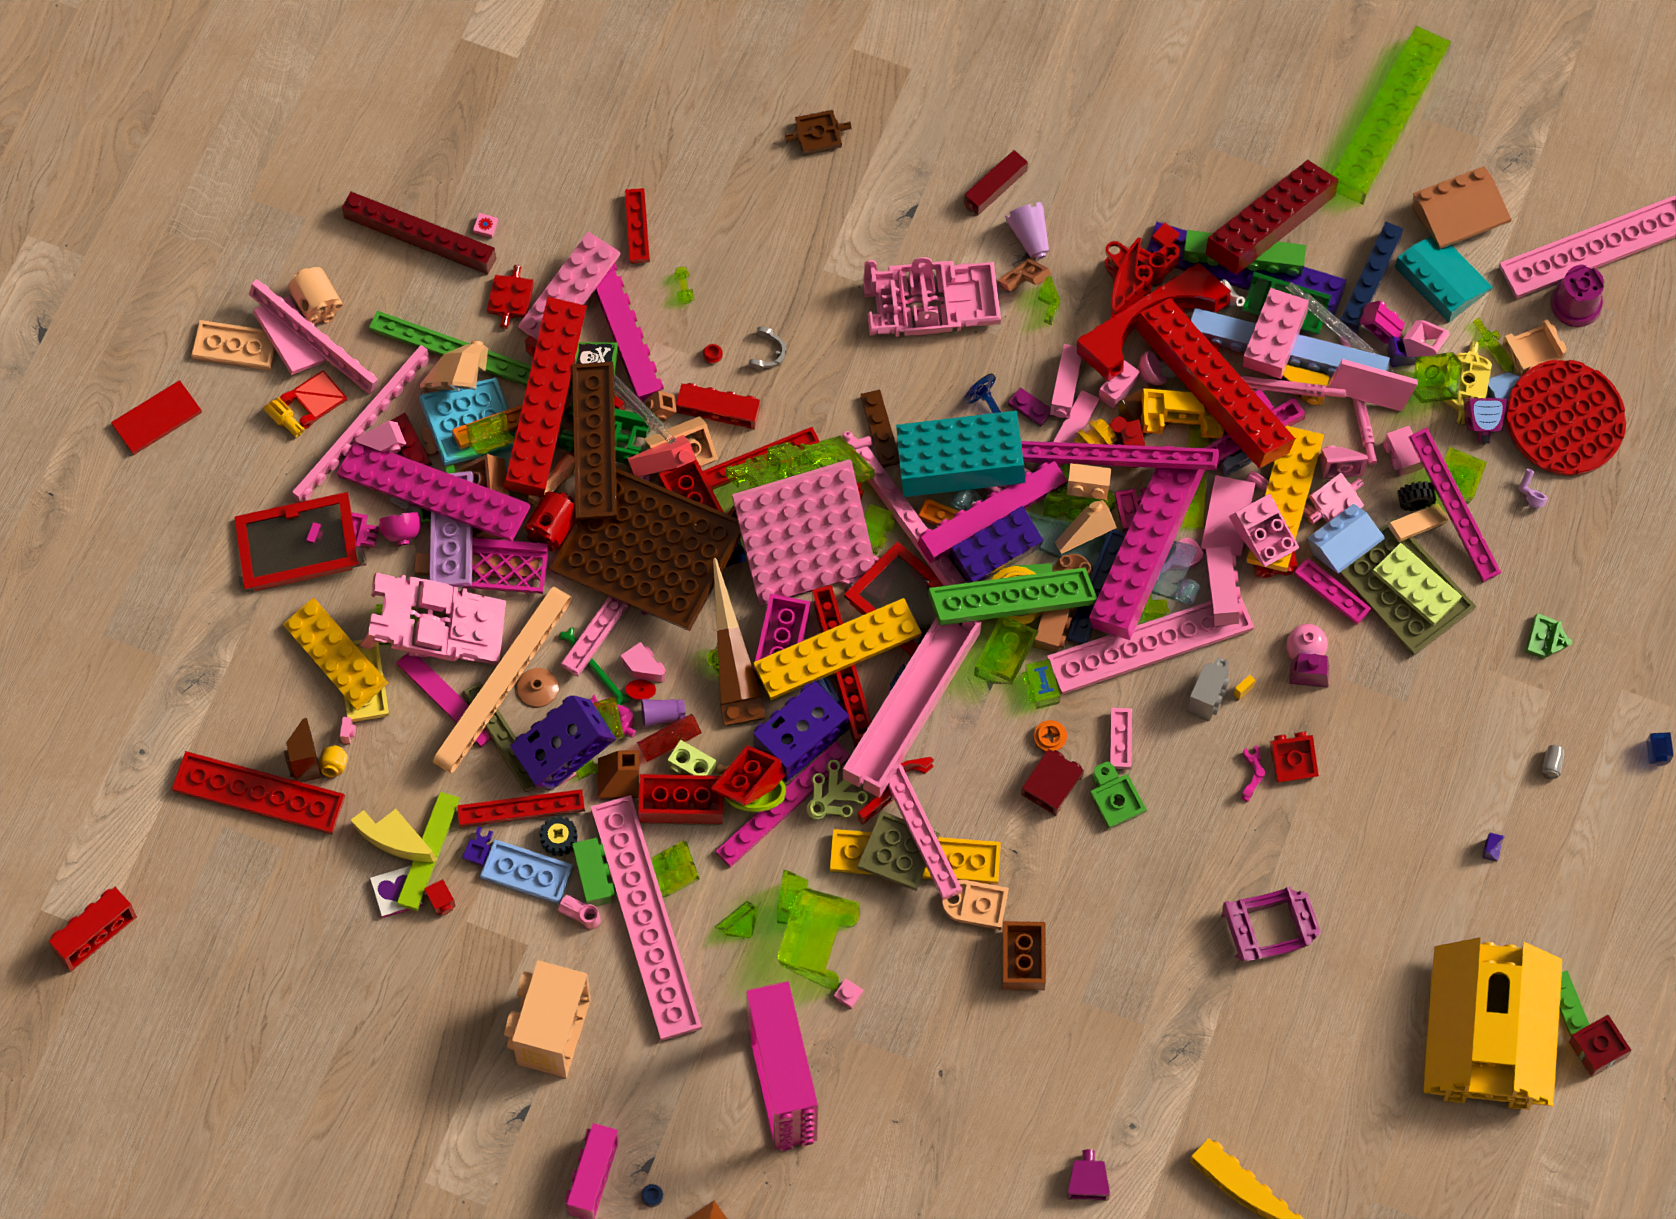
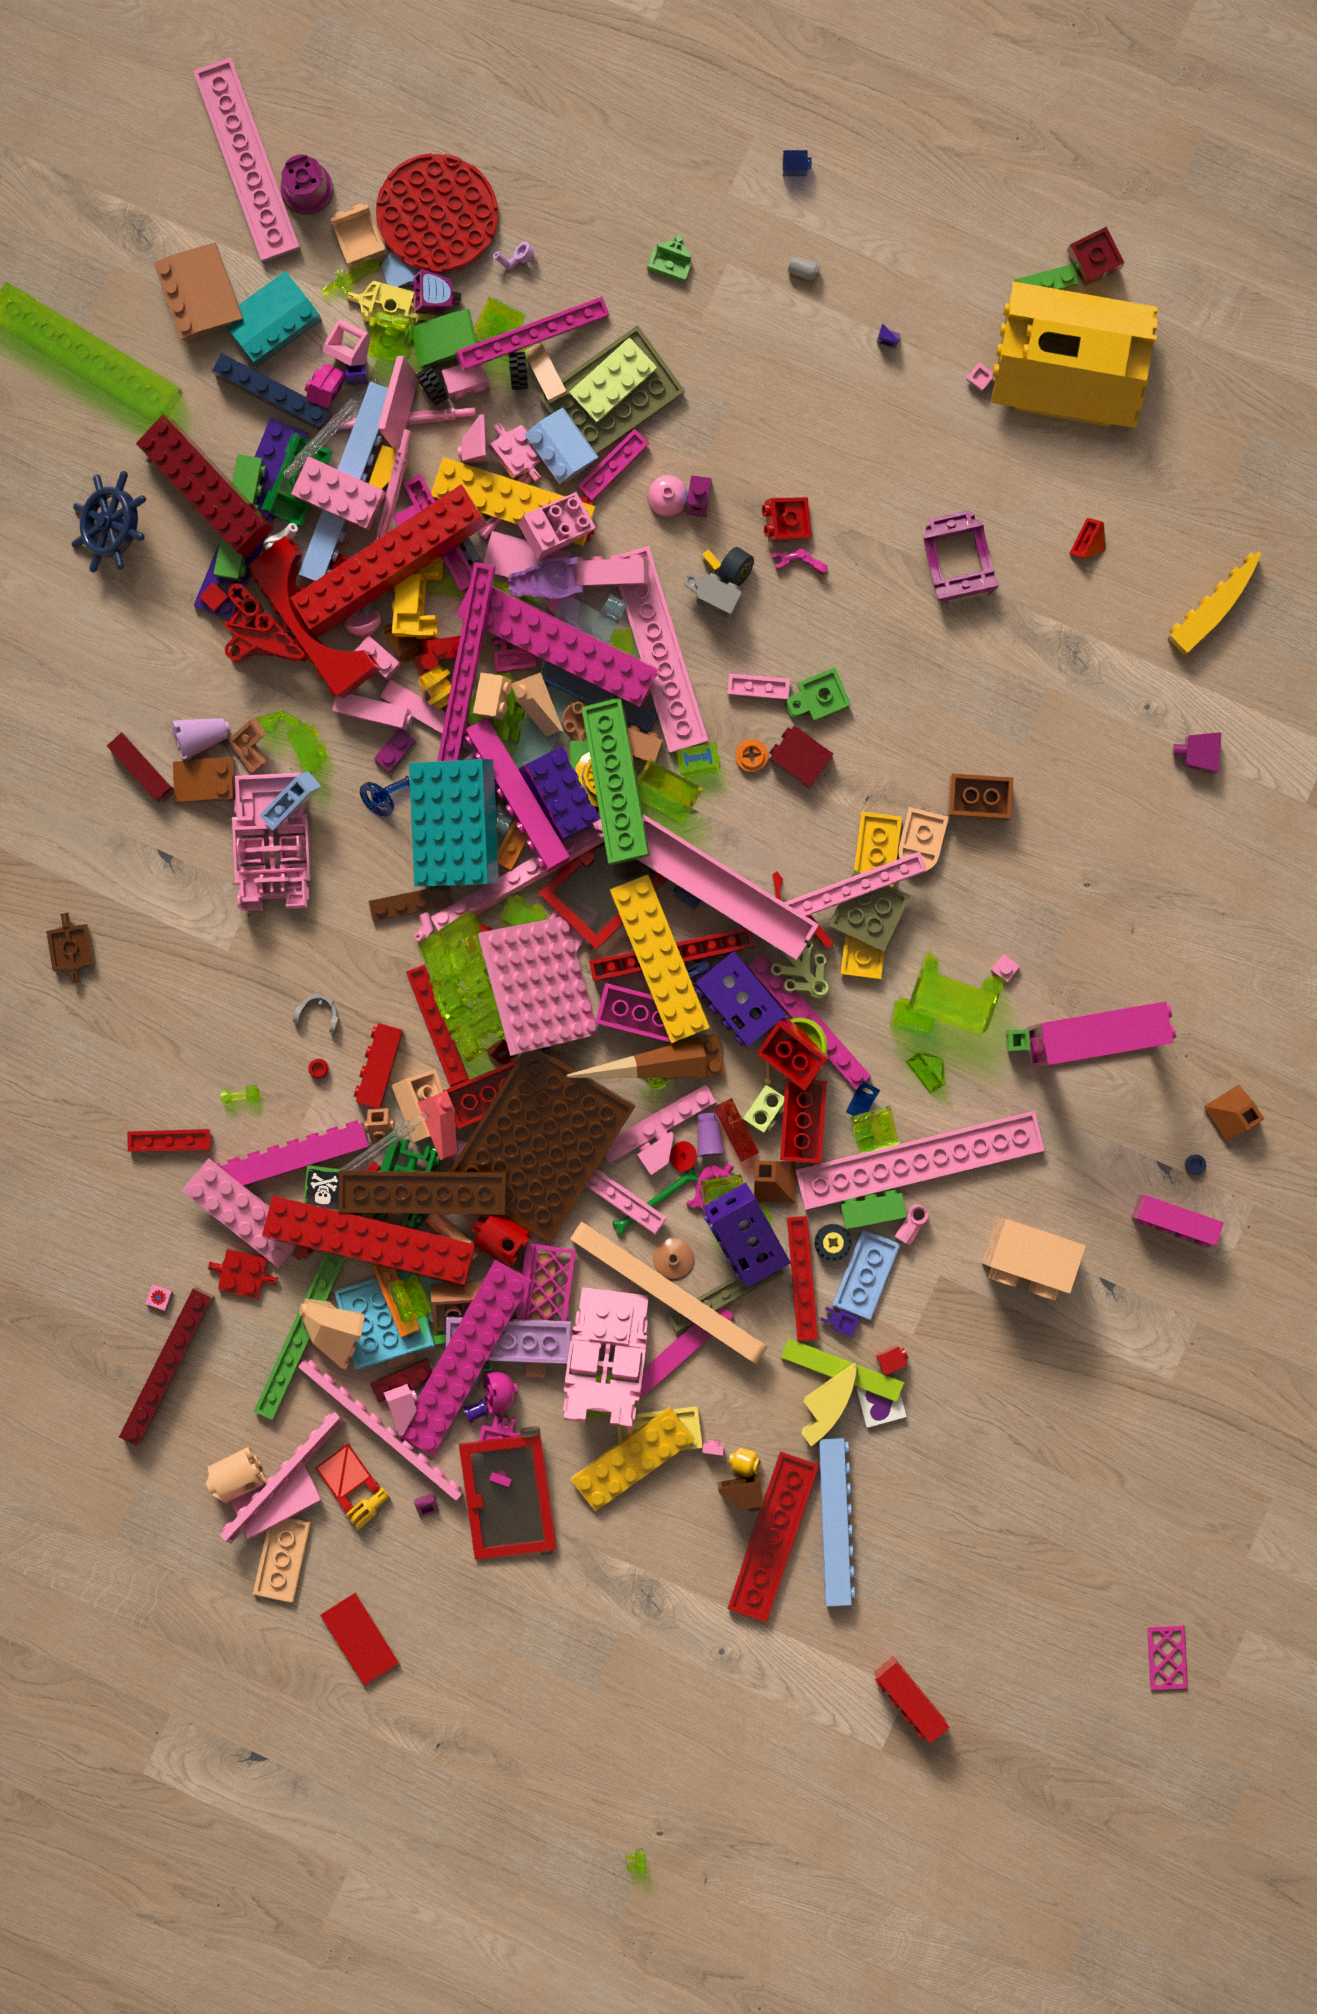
camera: 85 degrees left, 20 degrees up
(145, 1204) = (1153, 1669): none -> dark pink window
(274, 850) = (835, 1521): none -> light blue brick
(287, 470) = (426, 1505): none -> magenta slope
(380, 508) = (476, 1411): none -> dark purple bush
(675, 668) = (660, 1122): none -> bright pink plate
(704, 857) = (862, 1100): none -> clear blue bracket
(973, 307) = (290, 799): none -> light blue slope
(988, 239) = (204, 780): none -> dark orange slope
(1026, 327) = (307, 747): none -> clear neon green hinge
(1210, 531) = (549, 579): none -> medium lavender animal
(1229, 138) = (108, 521): none -> dark blue piece
(1240, 709) = (736, 566): none -> black wheel
(1301, 1058) = (1089, 540): none -> red slope
(1392, 418) = (432, 386): none -> black tyre
(1443, 424) = (442, 337): none -> bright green slope
(1460, 934) = (980, 377): none -> bright pink plate

